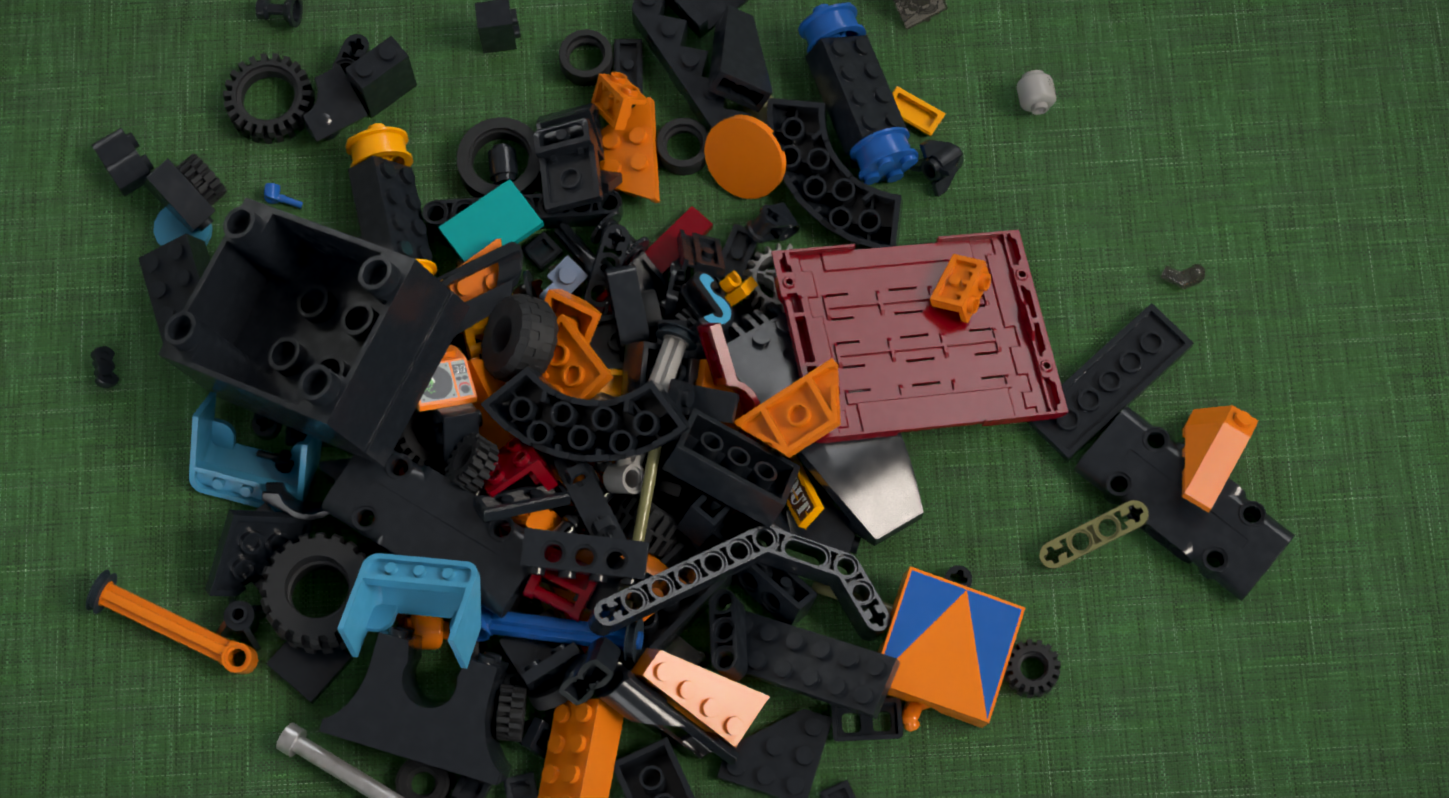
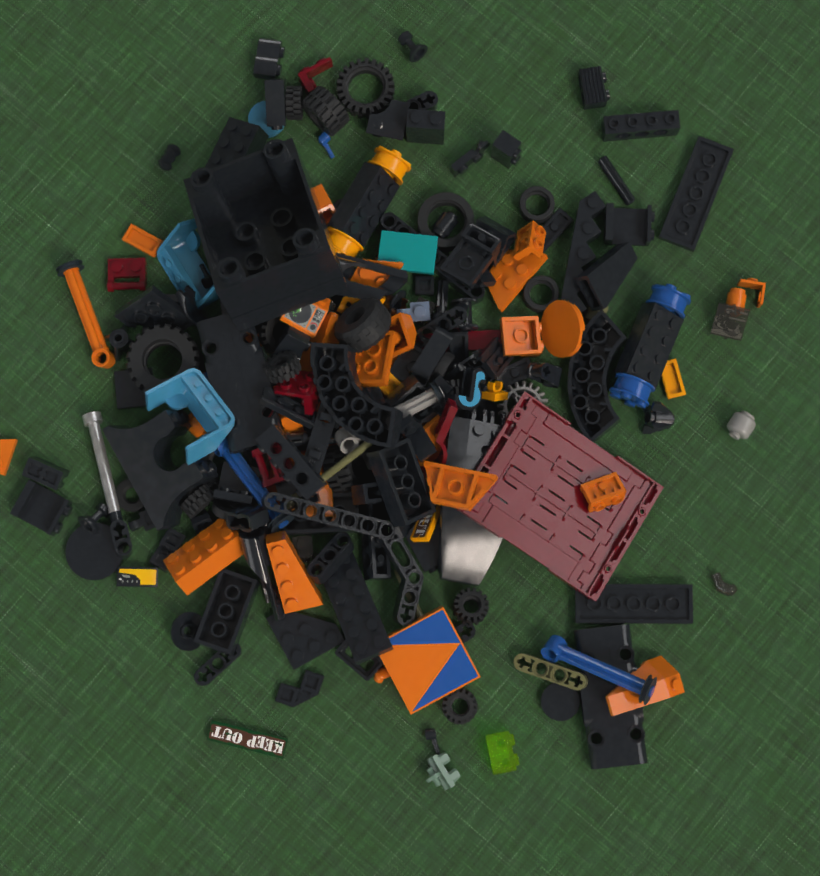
camera: 45 degrees right, 10 degrees up
(160, 487) = (142, 240): none -> orange tile
(171, 535) = (127, 268): none -> dark red plate
(185, 138) = (307, 73): none -> dark red bracket
(247, 156) = (325, 110): none -> black tyre
(464, 65) = (467, 159): none -> black hinge
(706, 206) = (521, 336): none -> orange plate
(933, 532) = (475, 596): none -> black tyre
(1032, 730) = (430, 734): none -> black hand
(1079, 502) = (557, 649): none -> blue piece
(1083, 761) = (438, 772): none -> sand green hips
(1127, 674) = (501, 752): none -> clear neon green brick
(1135, 561) = (560, 702): none -> black tile

